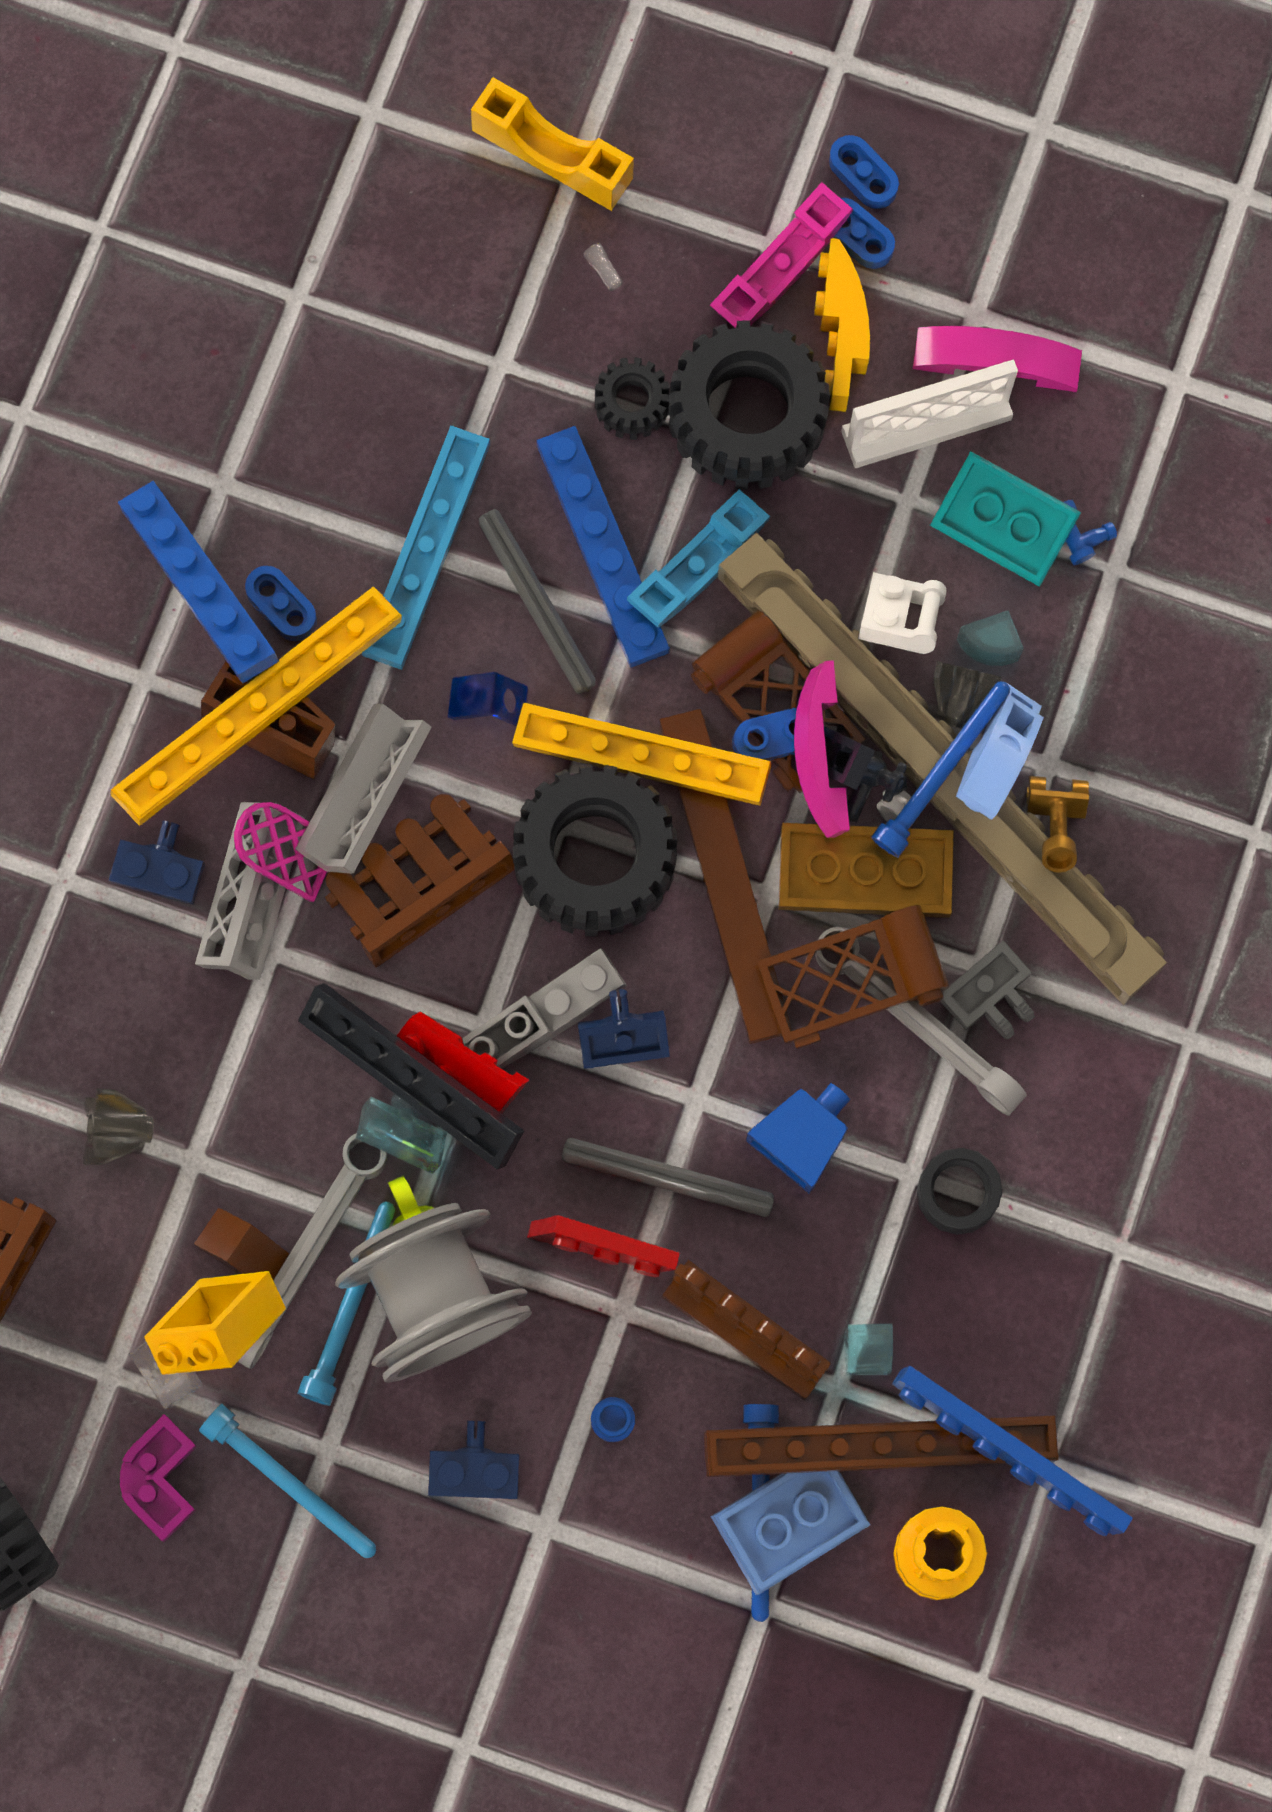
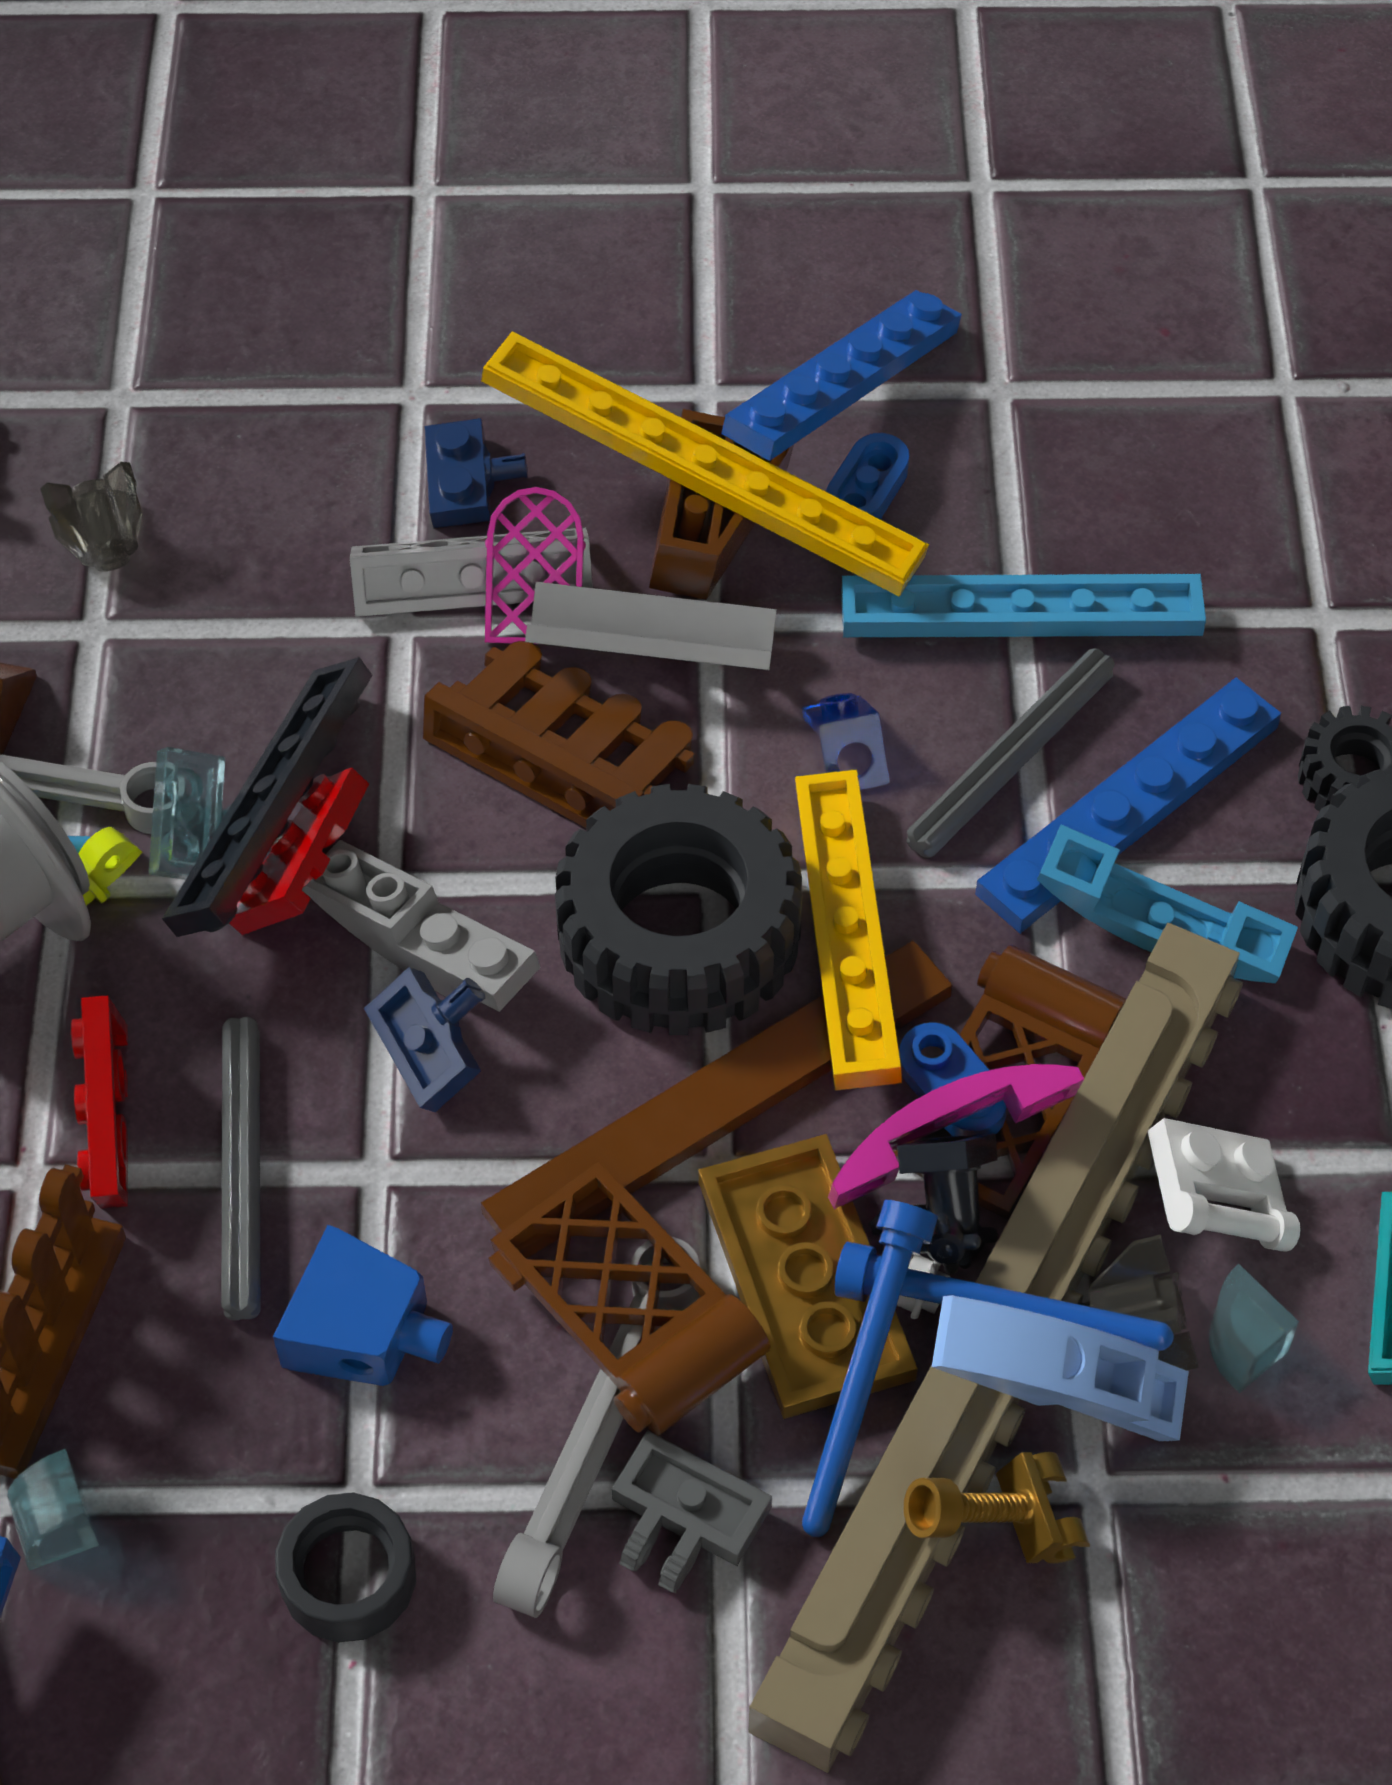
camera: 75 degrees right, 20 degrees down
(888, 801) = (903, 1234): none -> blue piece

